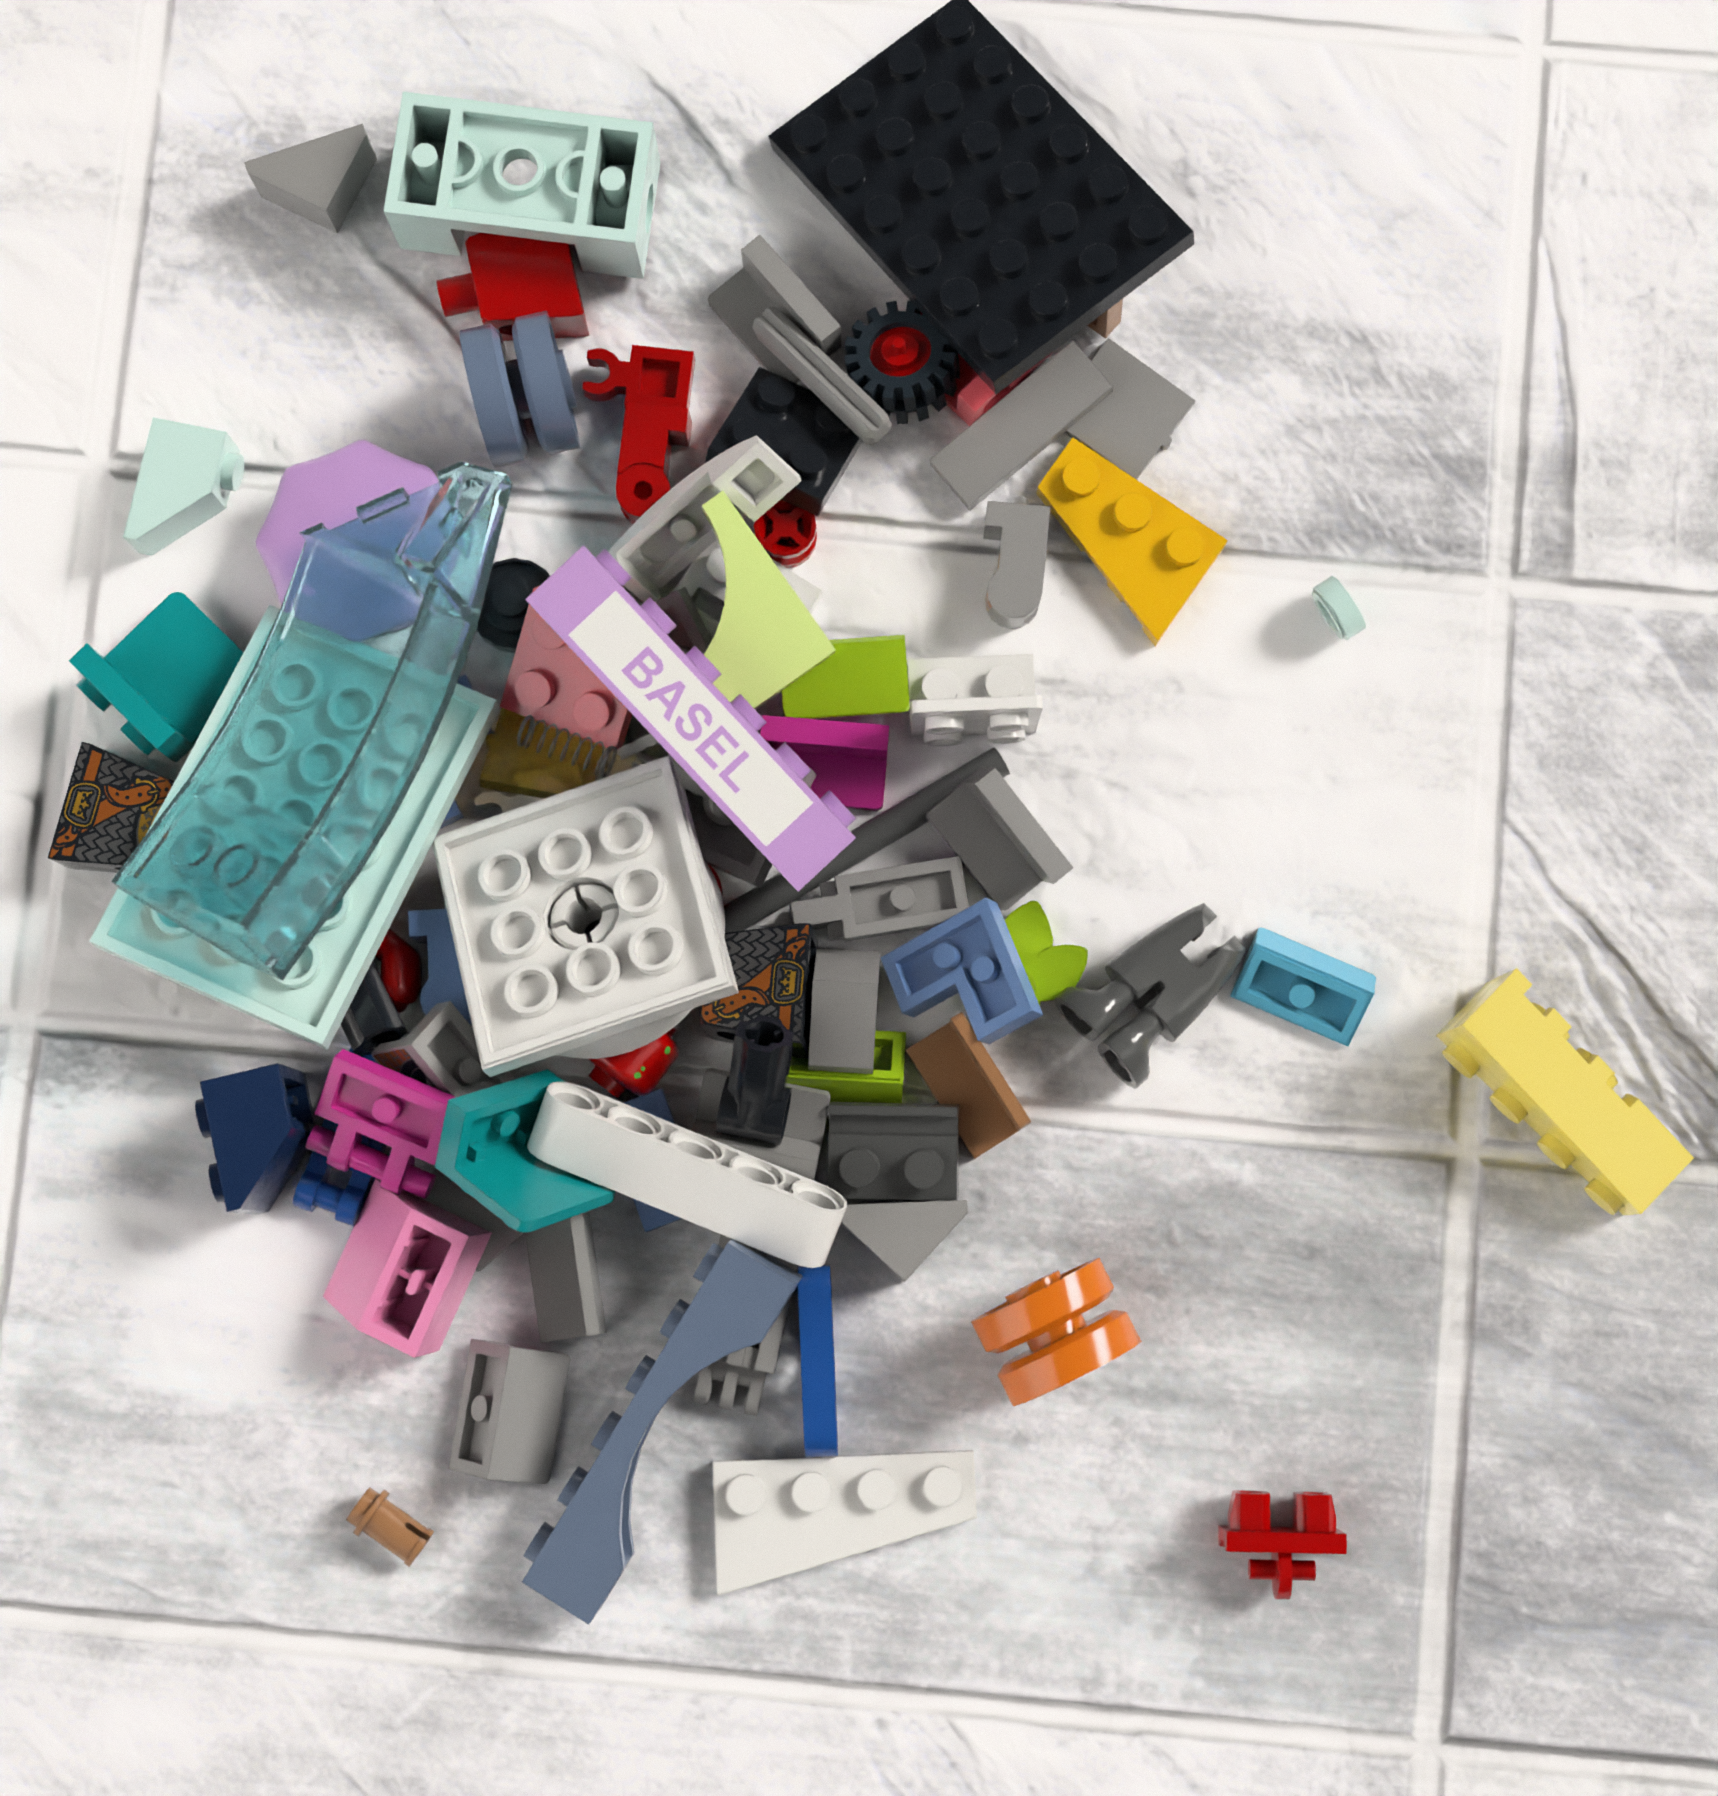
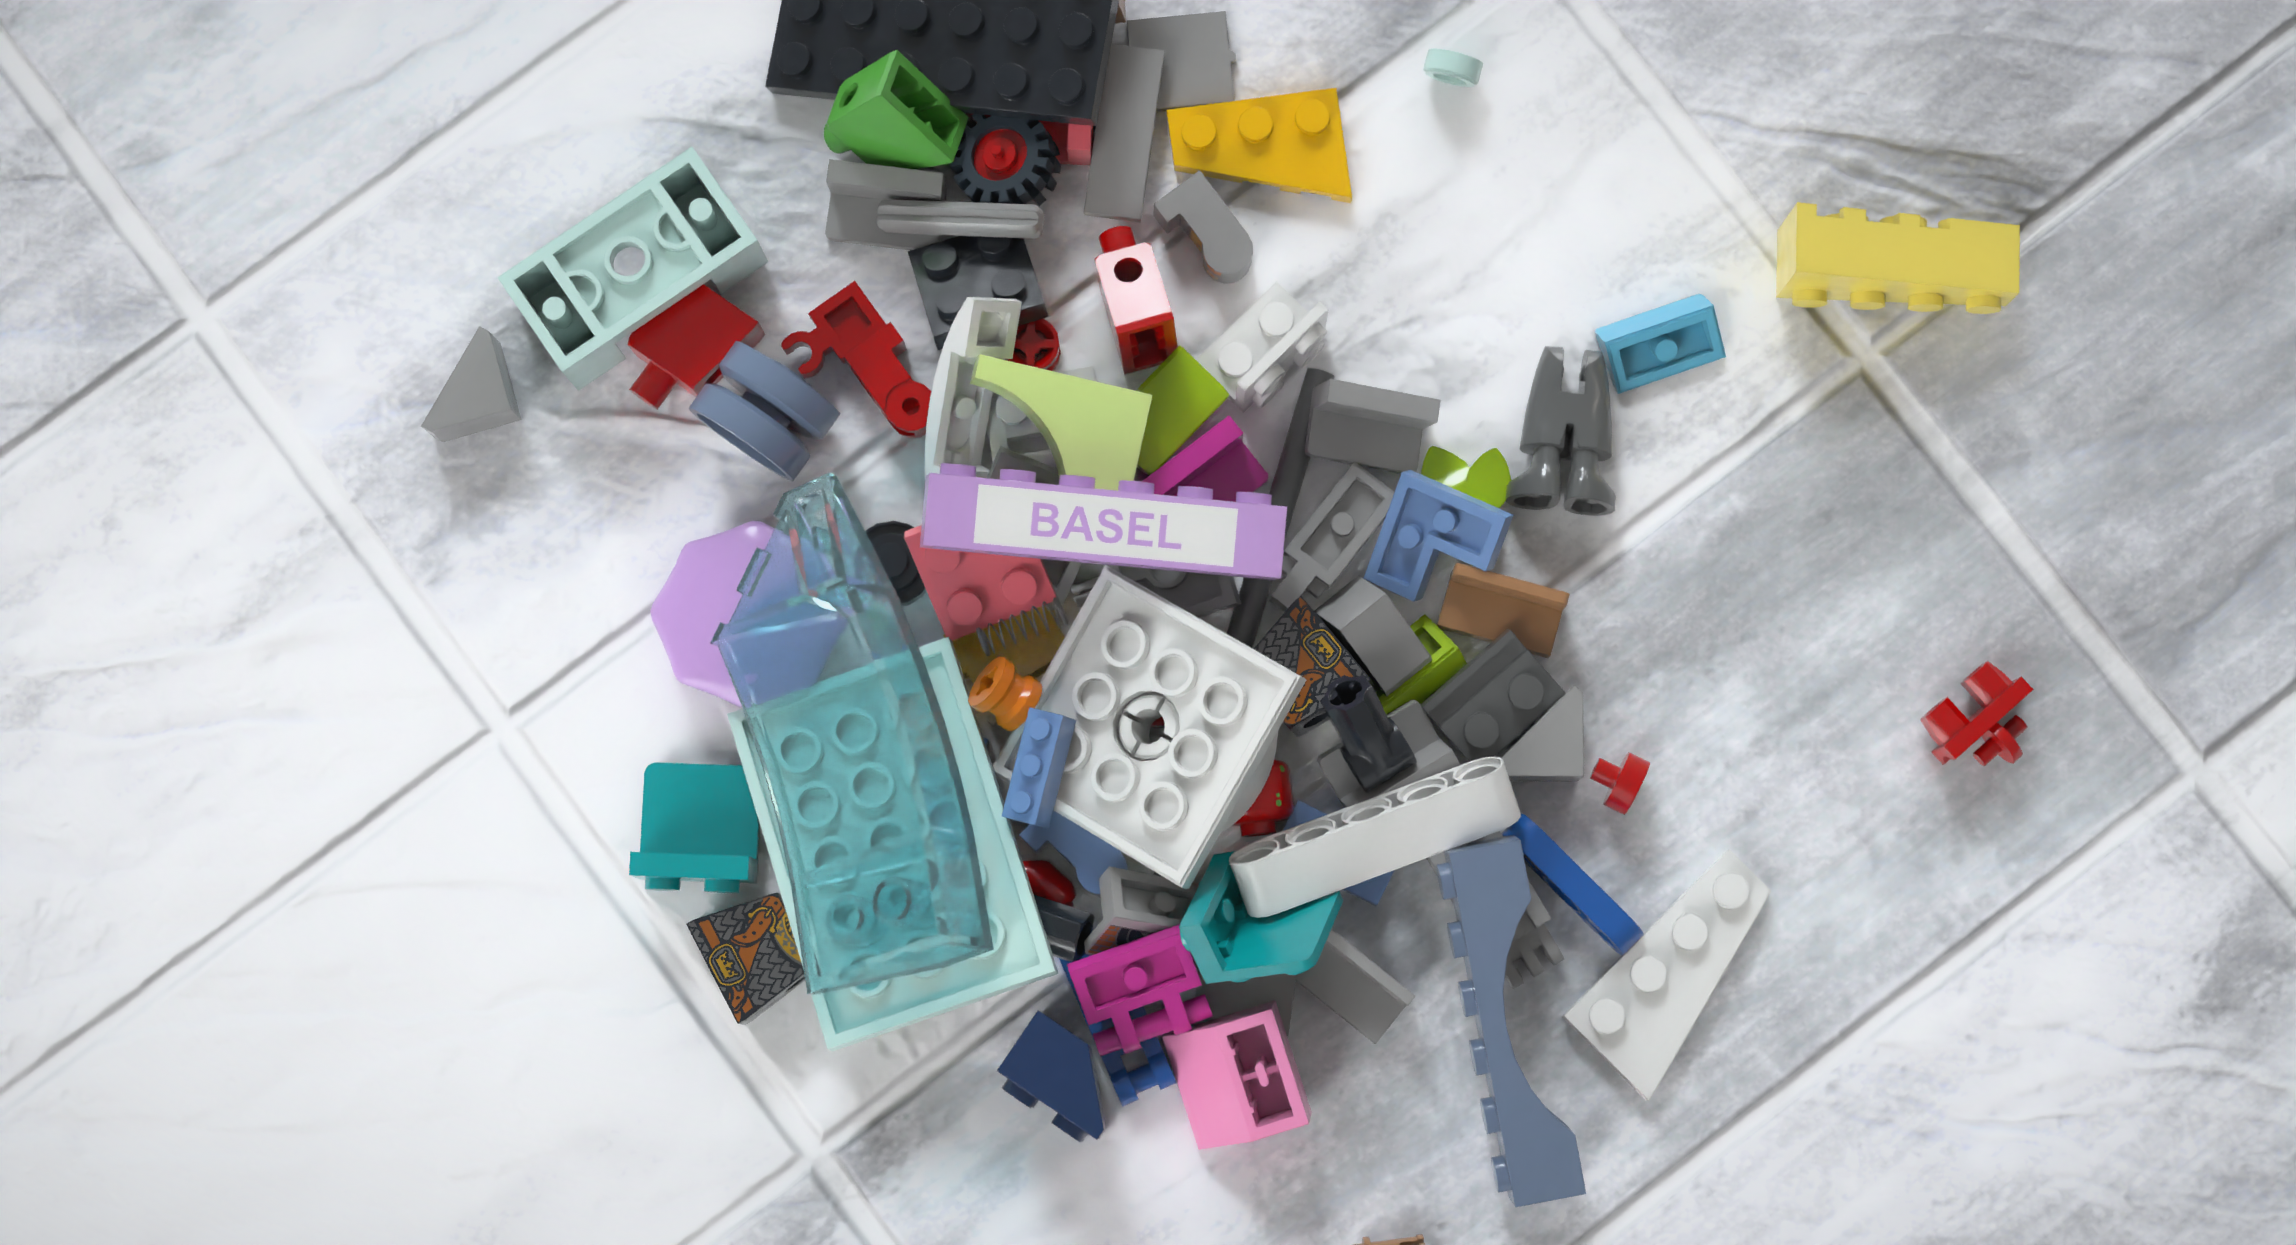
camera: 40 degrees left, 0 degrees up
(181, 483) = (581, 686): light aqua slope -> none
(463, 869) = (1039, 768): none -> medium blue piece
(496, 786) = (1005, 693): none -> orange wheel
(509, 1412) = (1397, 1109): light grey panel -> none
(842, 247) = (894, 117): none -> bright green torso
(899, 565) = (1134, 300): none -> torso
(936, 1314) = (1622, 781): none -> red tile
(1058, 1337) = (1721, 720): orange wheel -> none

